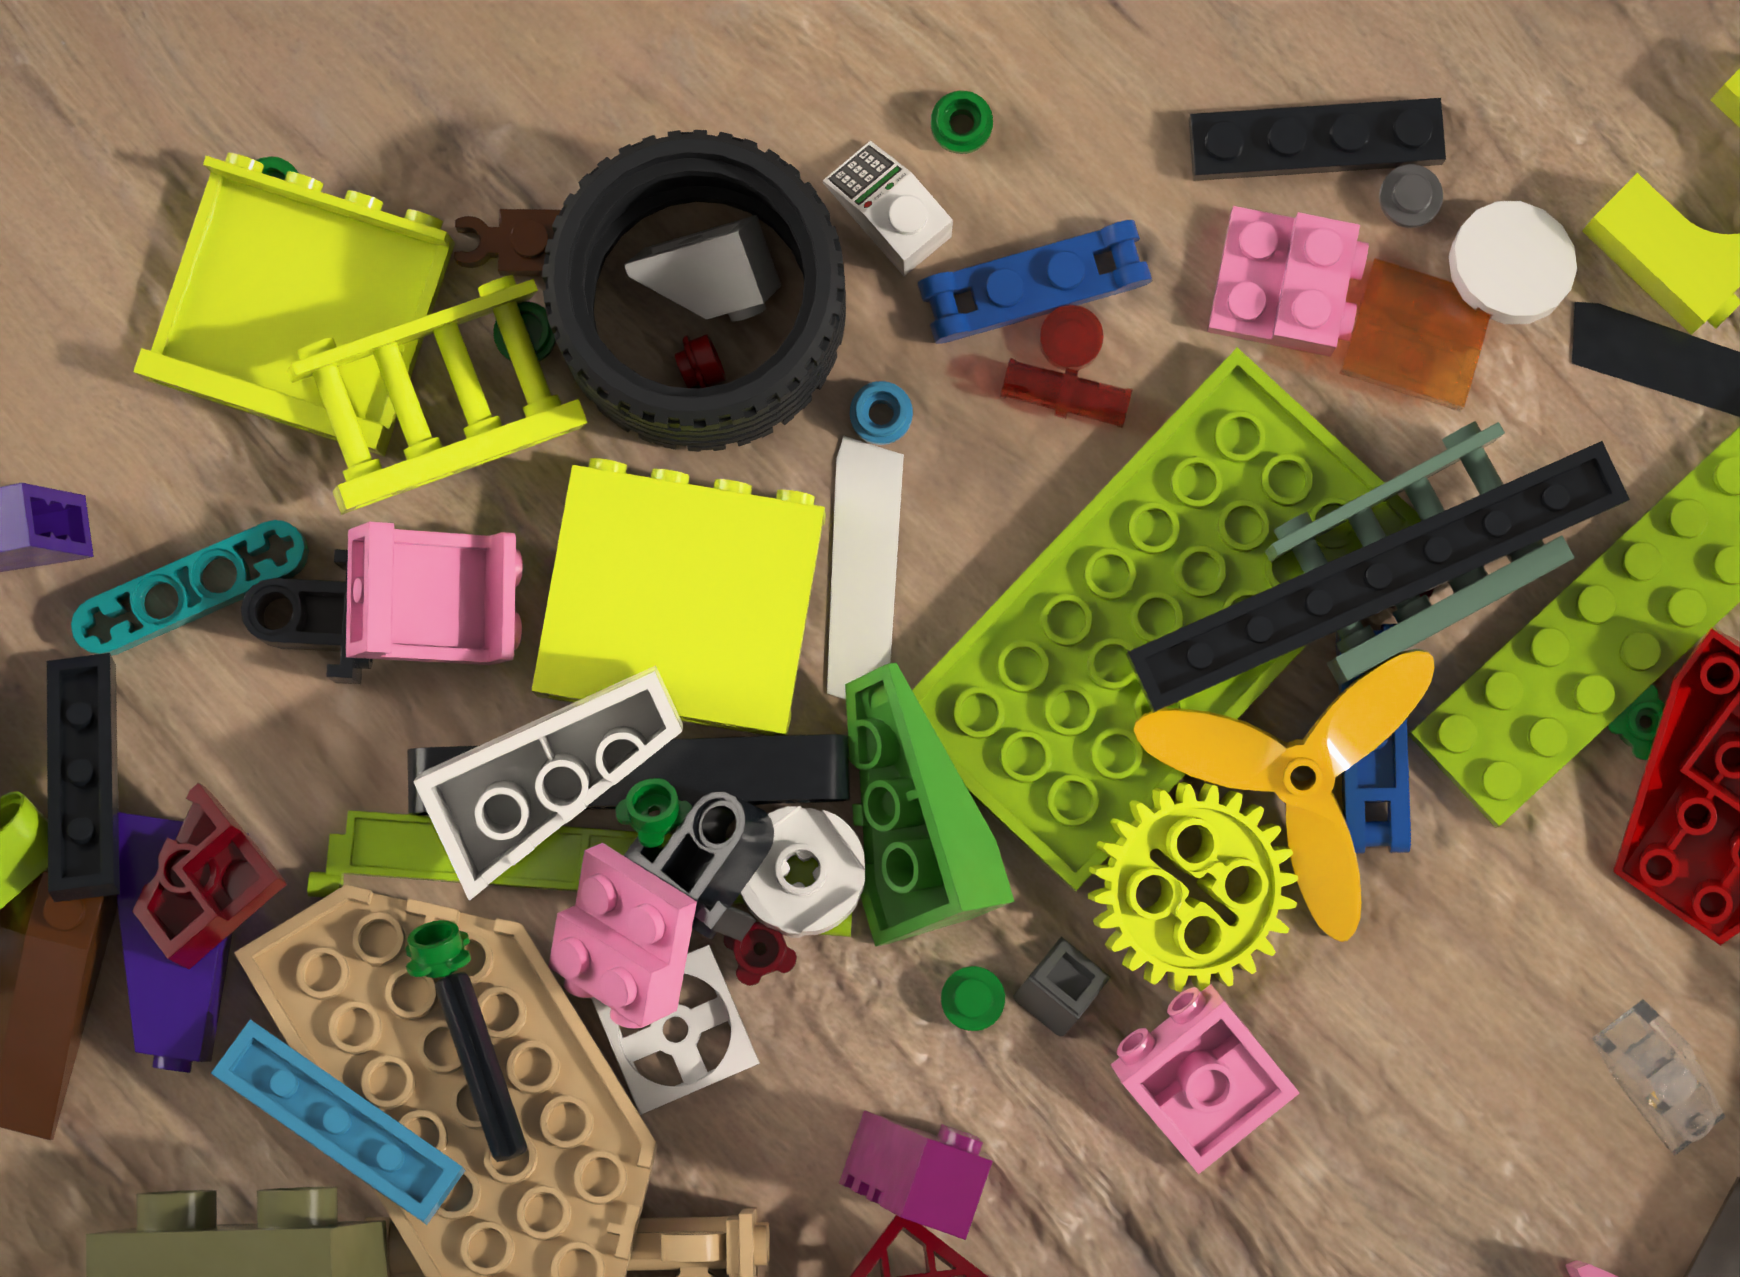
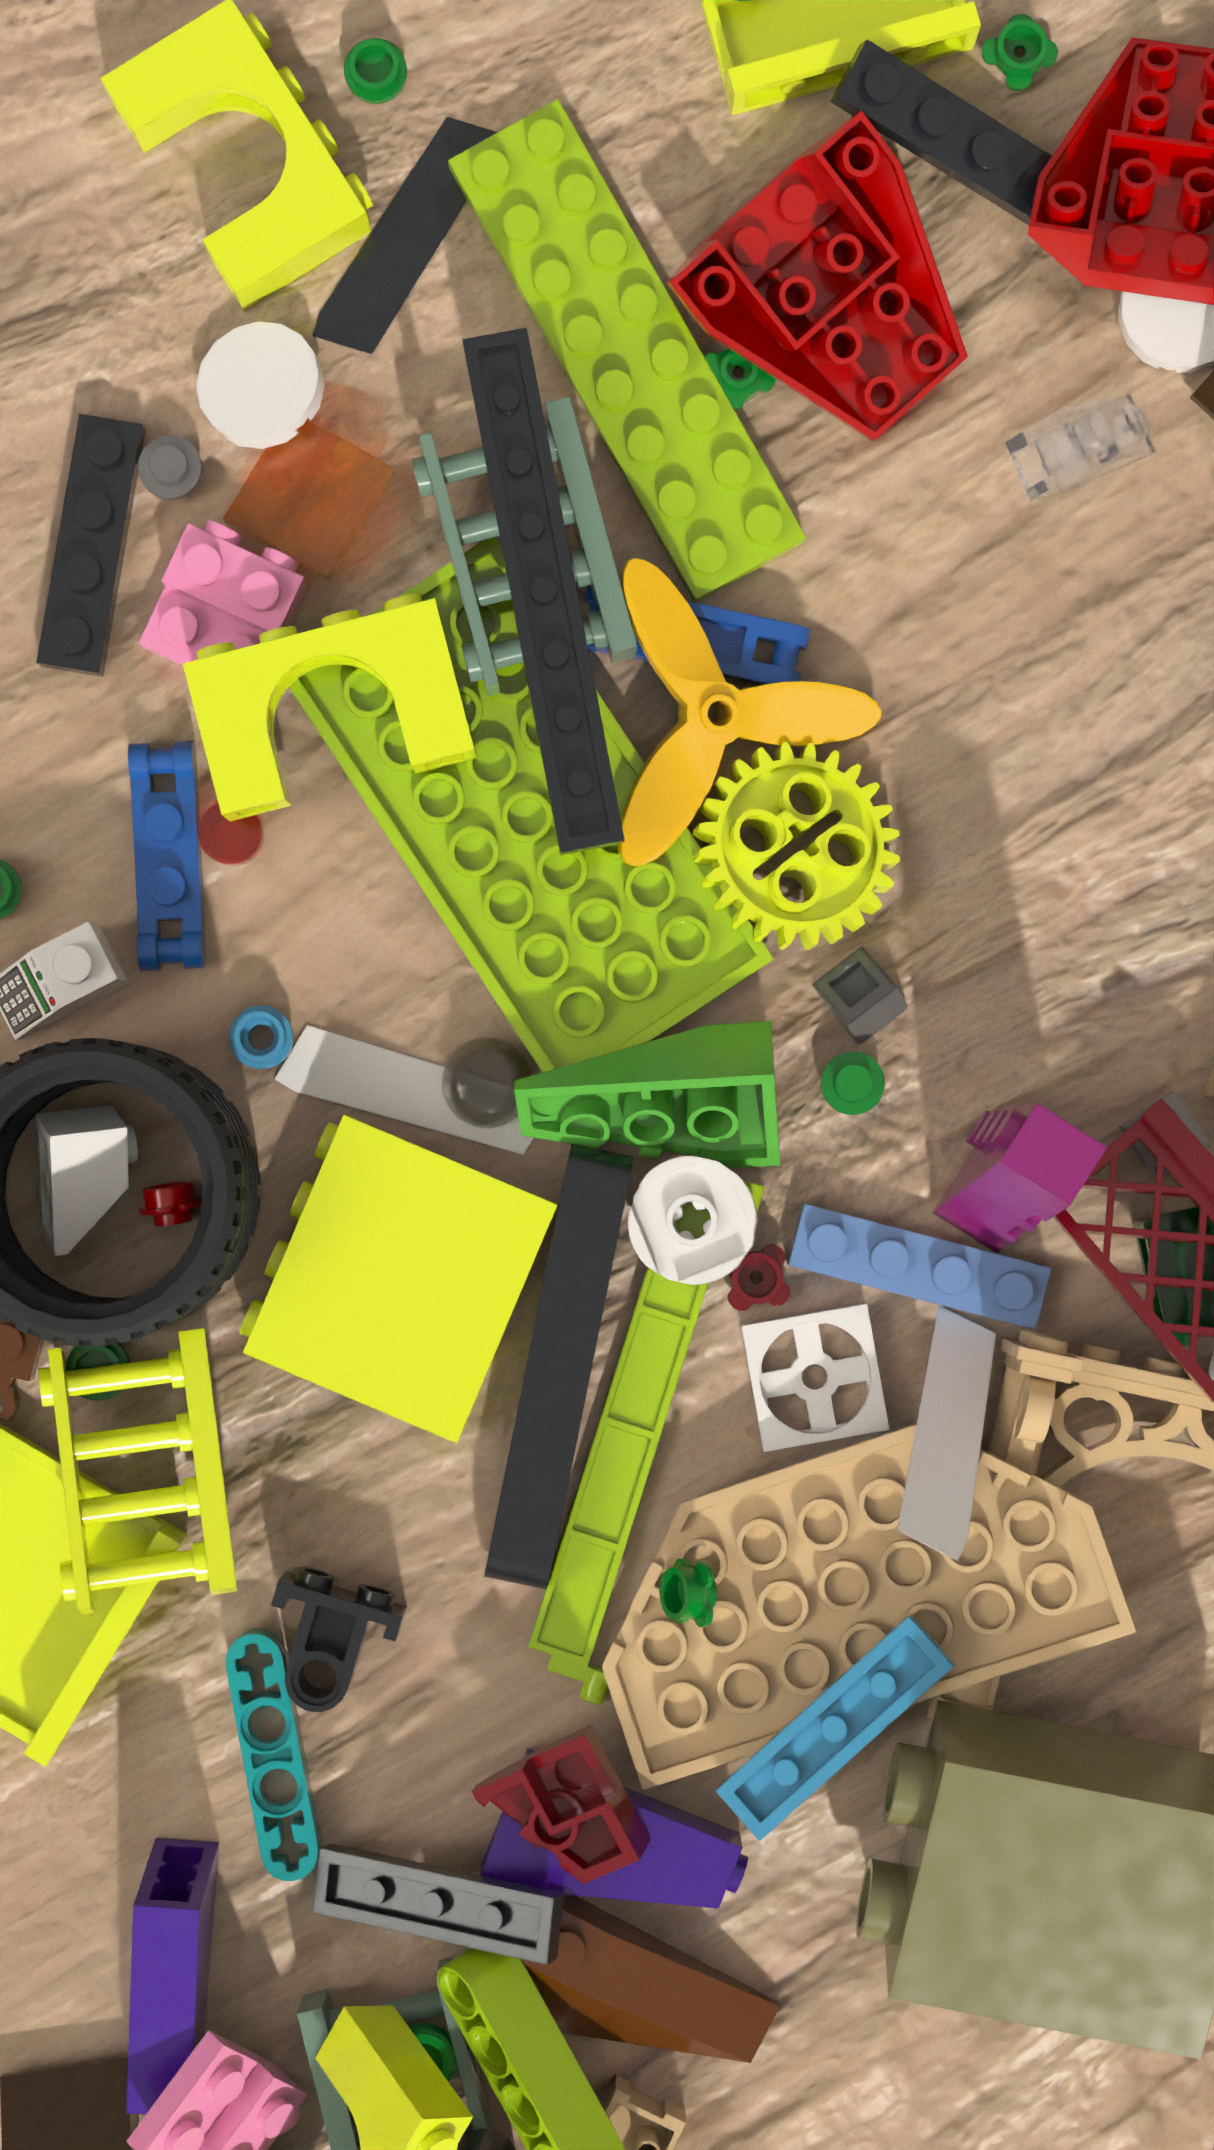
camera: 80 degrees left, 5 degrees up
(432, 595) = (339, 1519): bright pink panel -> none
(481, 1067) = (812, 1575): black axle -> none
(533, 780) = (546, 1459): white wedge -> none
(624, 939) = (721, 1408): bright pink plate -> none
(648, 797) = (588, 1354): green plate -> none
(648, 1168) = (948, 1435): none -> white sticker
(707, 865) = (670, 1316): black pin -> none
(808, 1108) = (919, 1266): none -> medium blue plate
(889, 632) = (481, 1081): none -> clear smoke piece
(1066, 393) = (285, 851): clear red pin -> none
(1202, 1076) = (979, 881): bright pink plate -> none
(1212, 313) = (241, 689): none -> neon yellow arch

